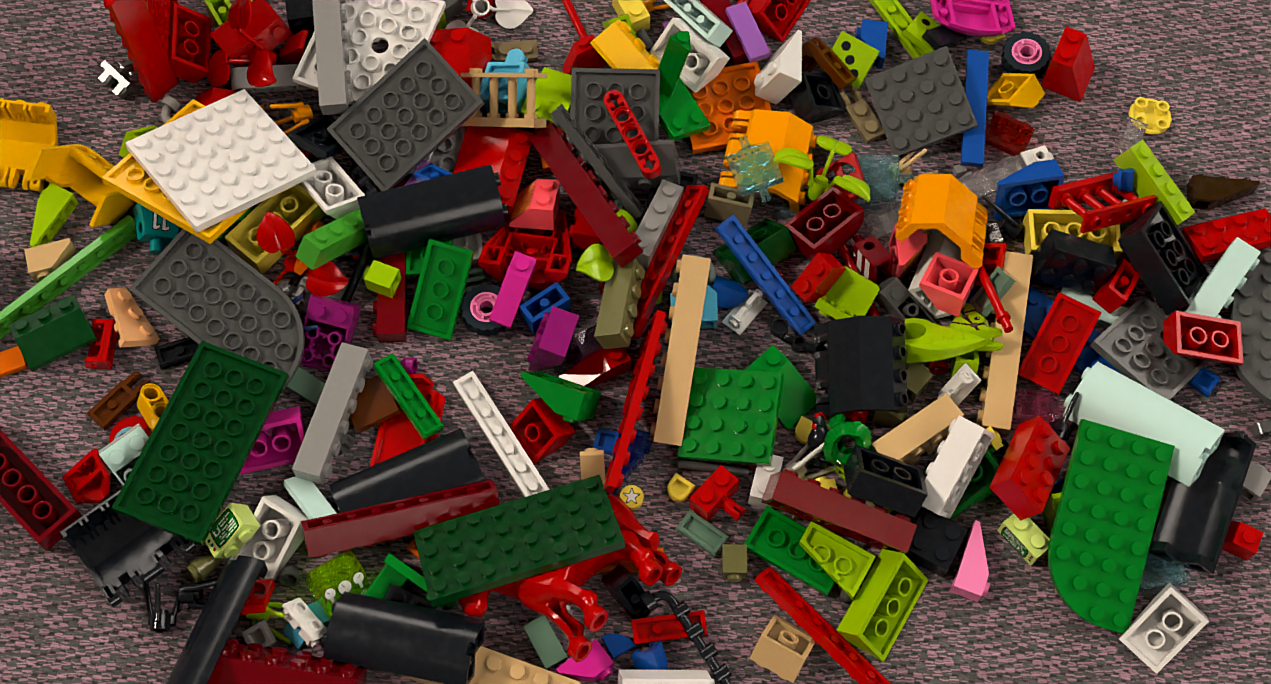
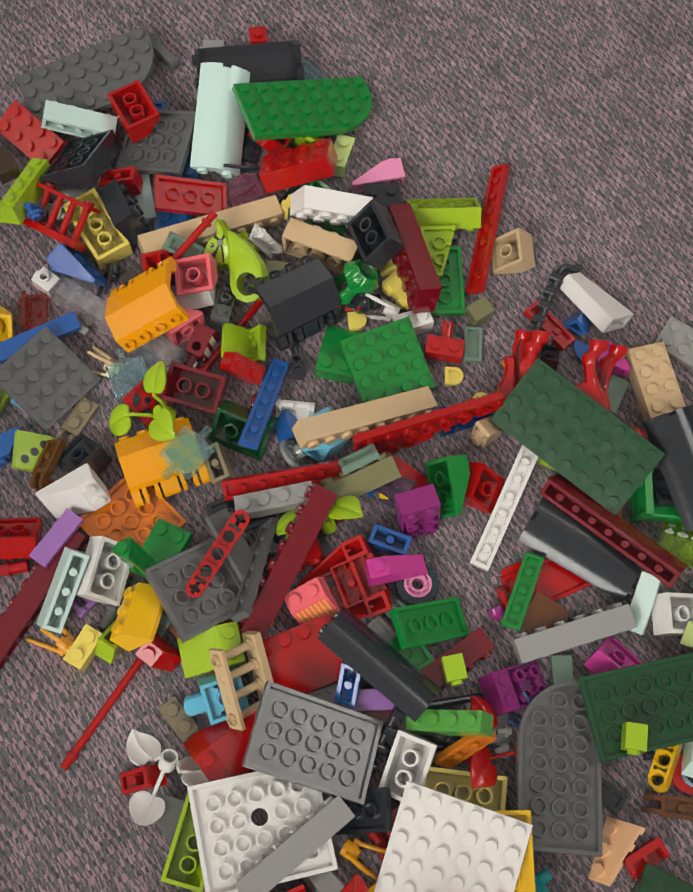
camera: 125 degrees left, 5 degrees up
(196, 375) = (634, 738): none -> lime brick
(605, 440) = (454, 442): blue tile -> none
(639, 308) = (358, 459): none -> sand green tile
(1163, 628) = (344, 57): white slope -> none

